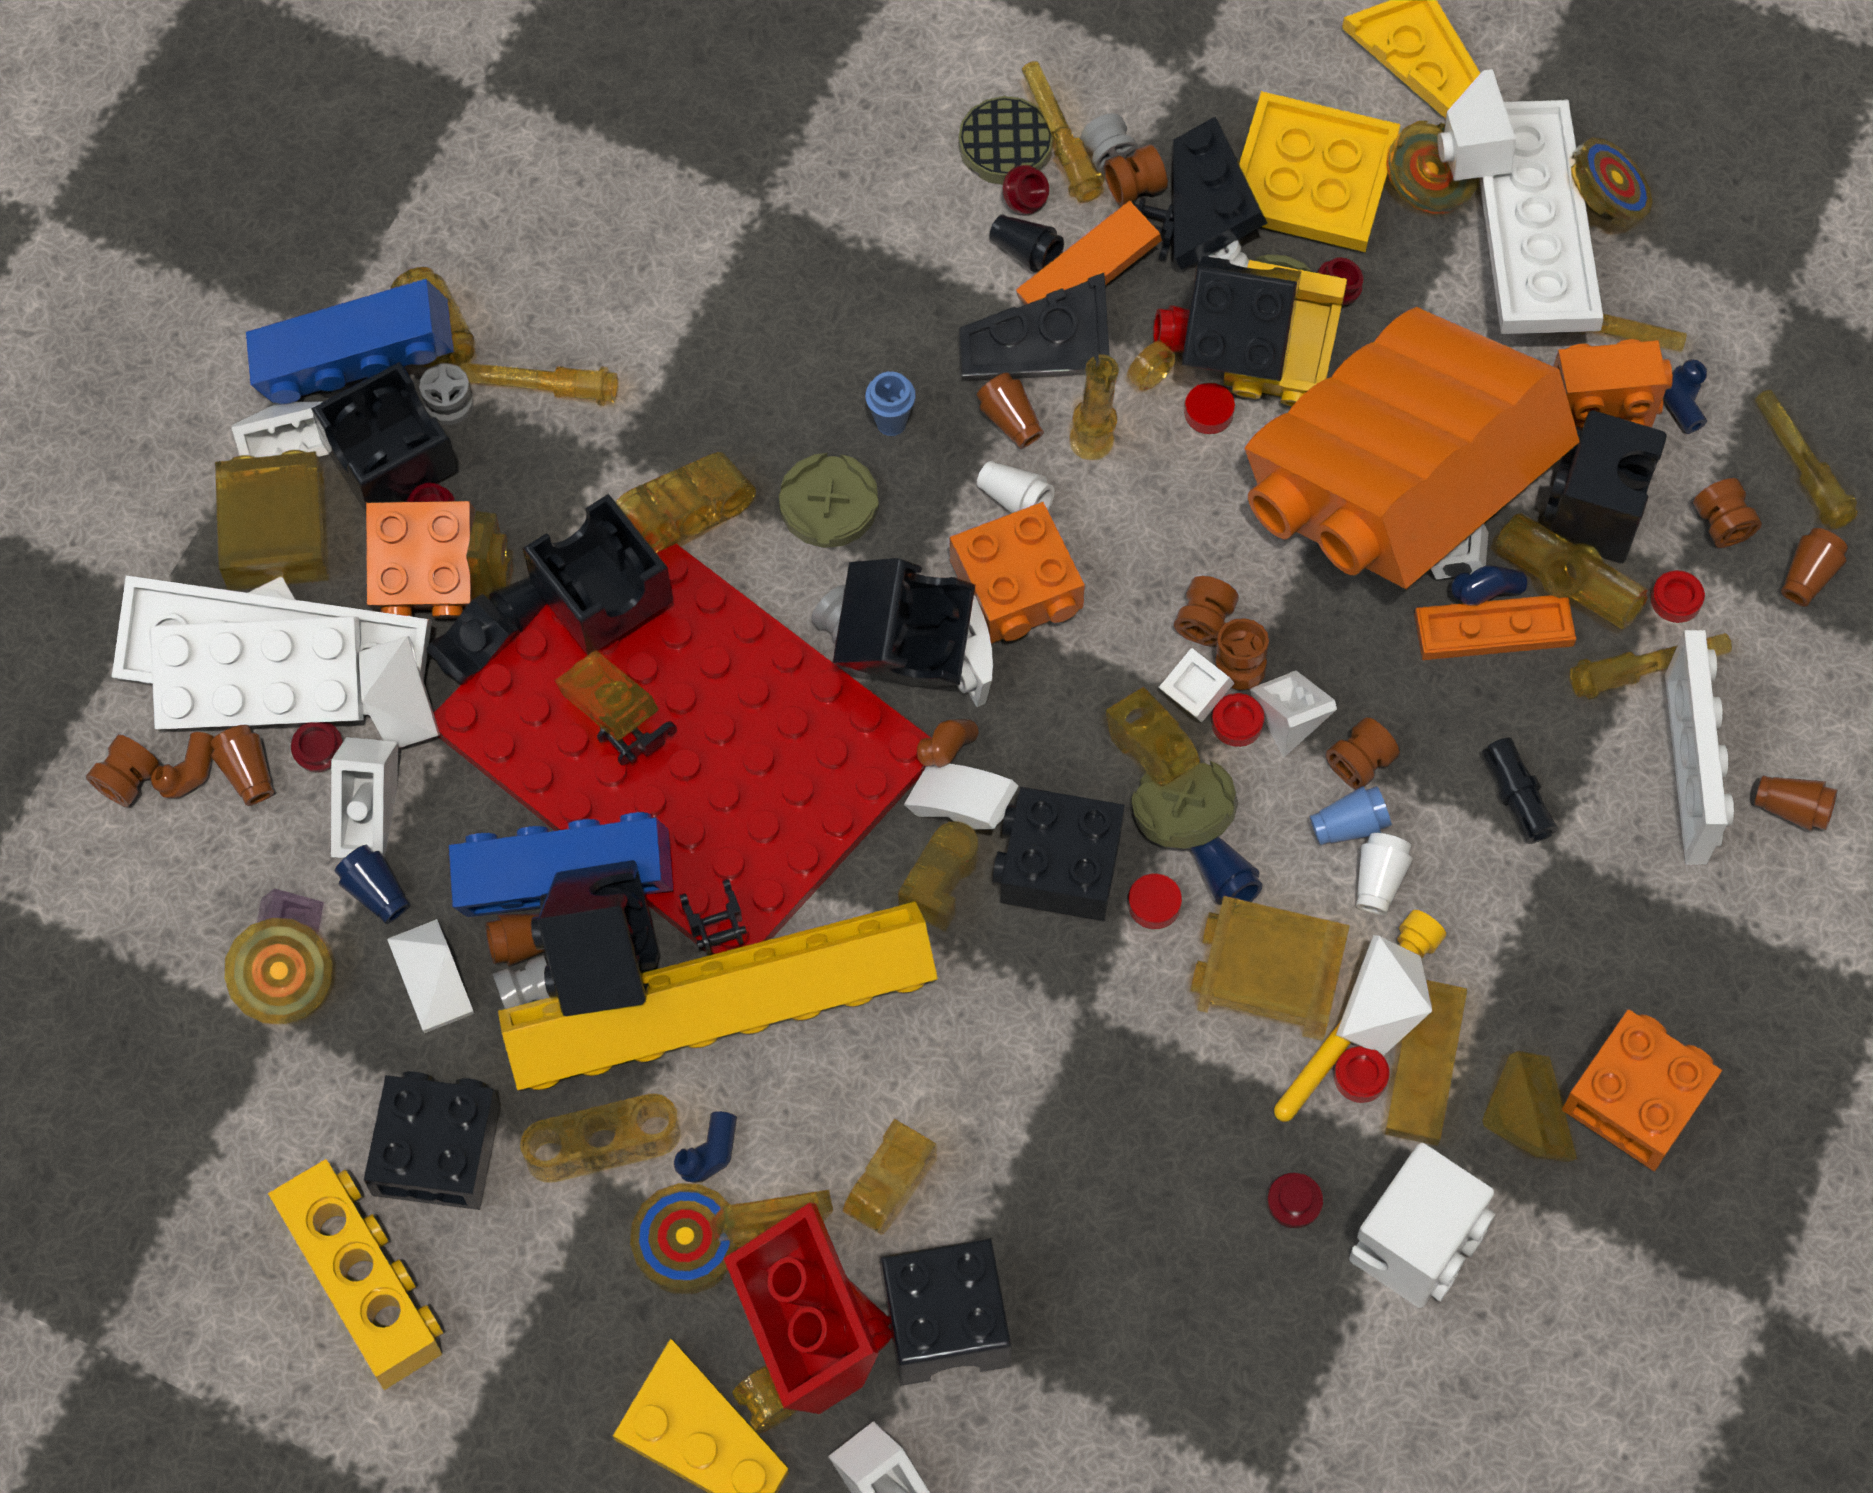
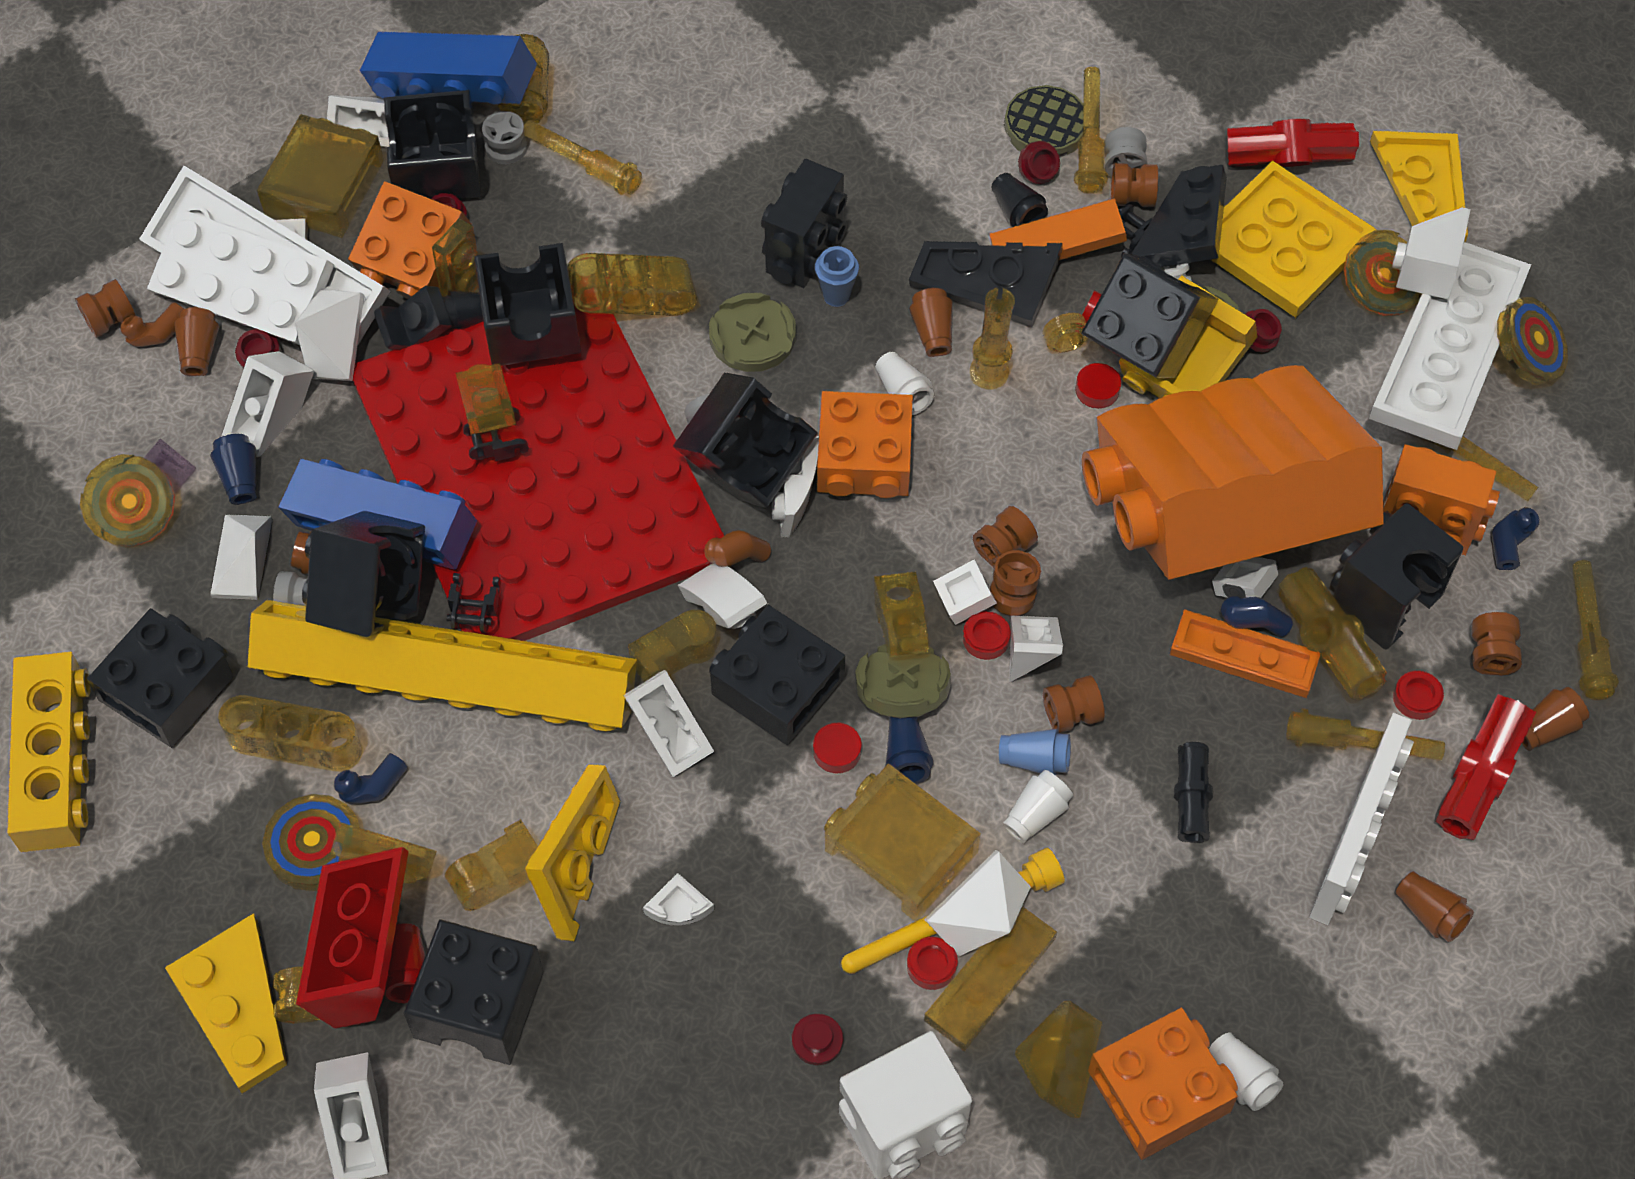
camera: 25 degrees right, 5 degrees down
(828, 361) = (803, 222): none -> black brick
(955, 1106) = (565, 854): none -> yellow wing
(982, 952) = (668, 723): none -> white slope
(1086, 1129) = (678, 903): none -> white tile
(1270, 64) = (1292, 143): none -> red piece
(1716, 1038) = (1254, 1075): none -> white cone
(1778, 643) = (1485, 768): none -> red piece

